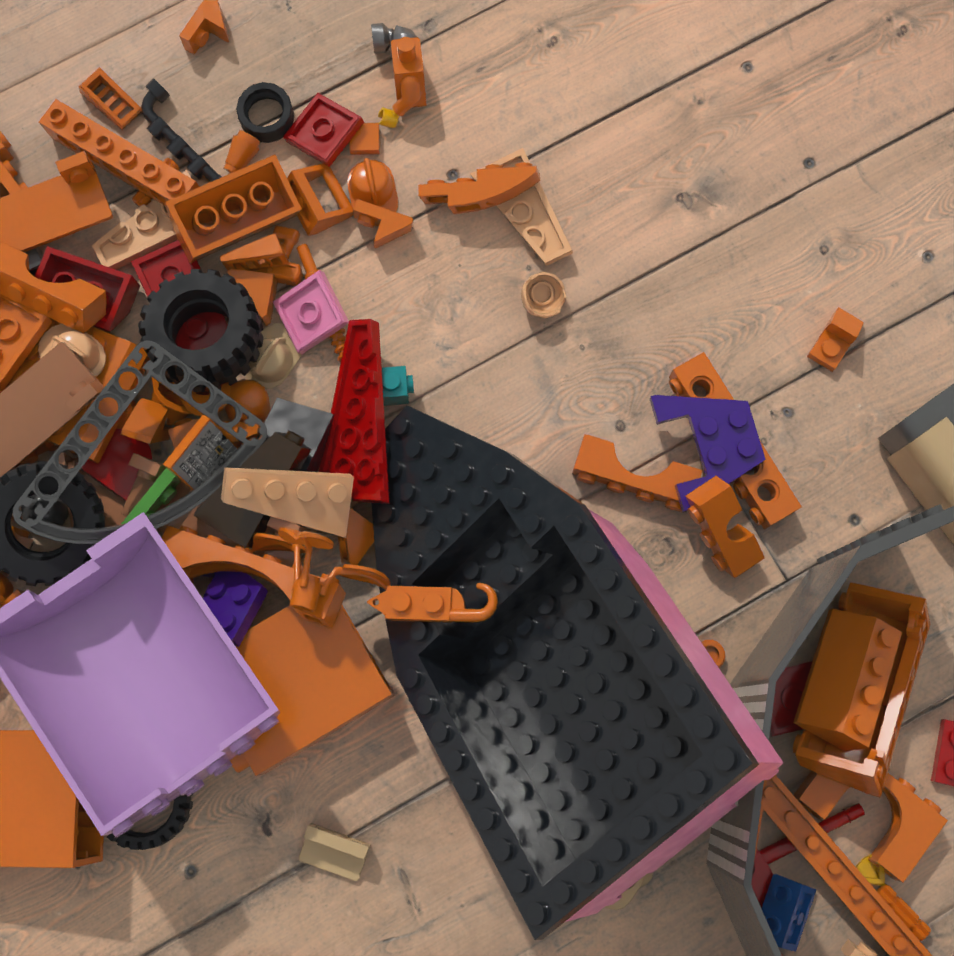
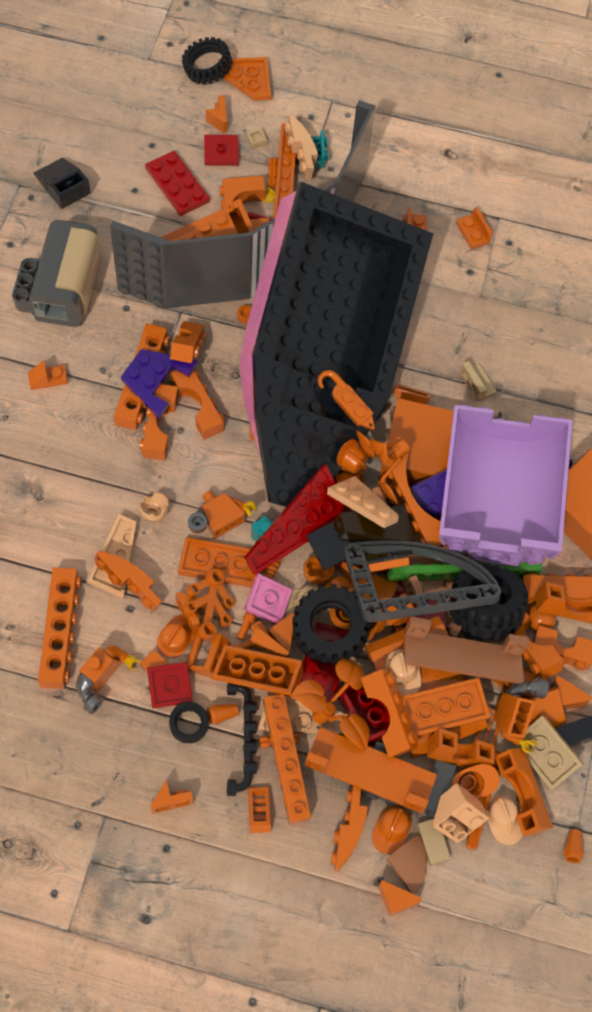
camera: 140 degrees left, 15 degrees down
(132, 206) = (311, 696): none -> orange plant
(290, 389) = (314, 573): none -> orange hair
(368, 245) = (211, 602): none -> orange plant
(371, 555) = (352, 457): none -> orange piece
(395, 740) = (411, 394): none -> orange slope
(416, 307) = (202, 555): none -> orange tile
(456, 23) = (60, 579): none -> orange brick
(464, 356) = (219, 514): none -> orange torso
(628, 374) = (155, 441): none -> orange arch

